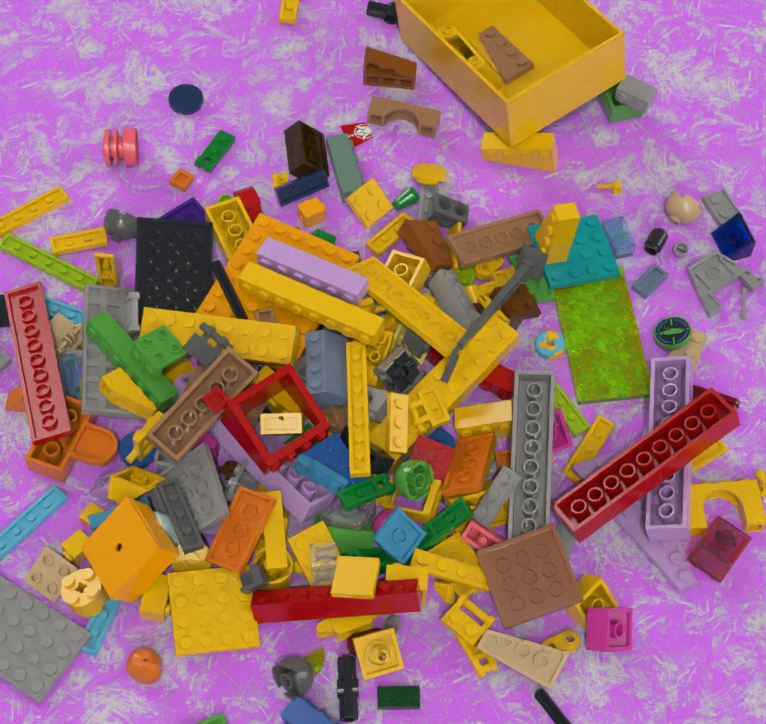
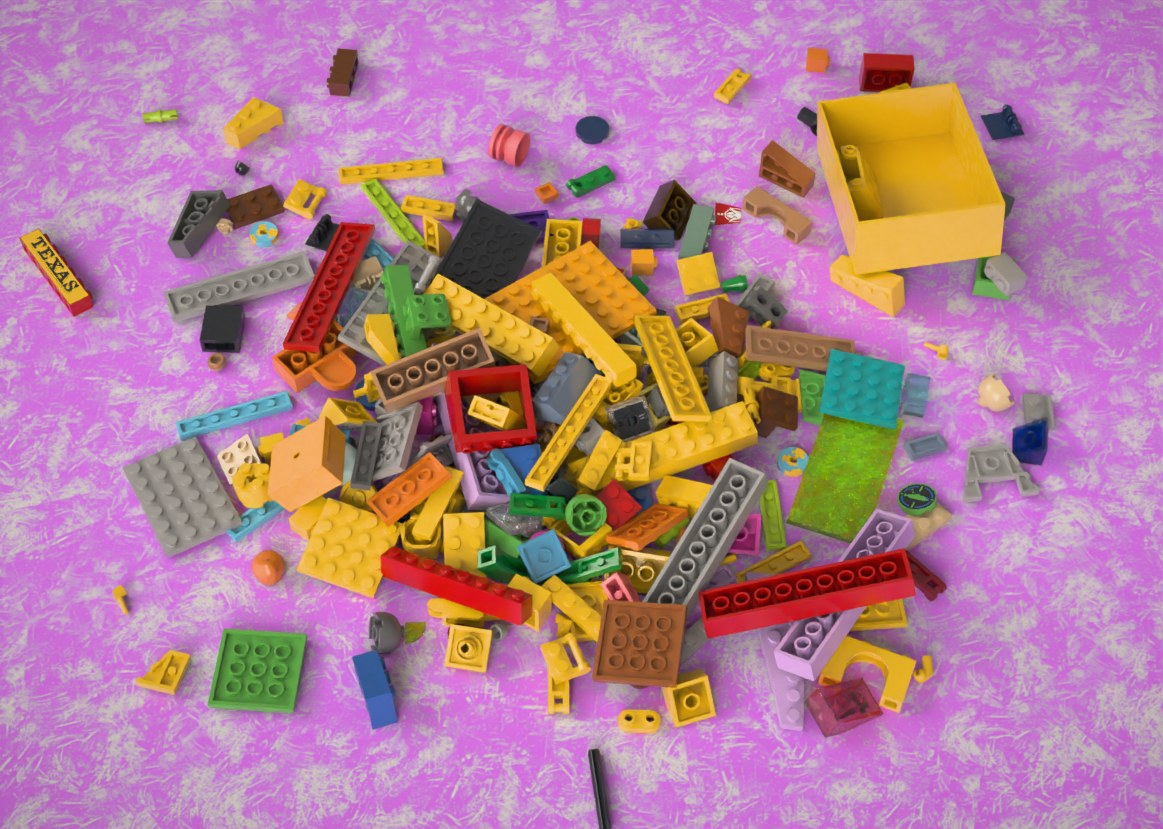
camera: 30 degrees right, 5 degrees down
(203, 351) = (463, 322): dark grey plate -> none
(215, 400) = (442, 366): red plate -> none
(228, 290) = (521, 287): black axle -> none
(253, 579) = (396, 535): dark grey panel -> none
(313, 271) = (601, 303): lavender brick -> none
(323, 563) = (461, 547): clear brick -> none
(347, 688) = (425, 666): black piece -> none
(355, 577) = (478, 568): yellow tile -> none
(398, 697) = (465, 695): dark green plate -> none
(429, 173) = (769, 271): yellow tile -> none
(496, 496) = (652, 562): light grey plate -> none
(508, 59) = (899, 194): medium nougat wing -> none
(528, 658) = (600, 716): tan wing -> none
(529, 265) = (809, 382): dark grey piece -> none
(558, 232) = (844, 358): yellow wedge -> none
(609, 629) = (690, 726): dark pink slope -> none
(655, 241) = (951, 413): black brick -> none
(682, 247) = (974, 428): light grey hinge -> none
(744, 290) = (999, 514): light grey hinge -> none

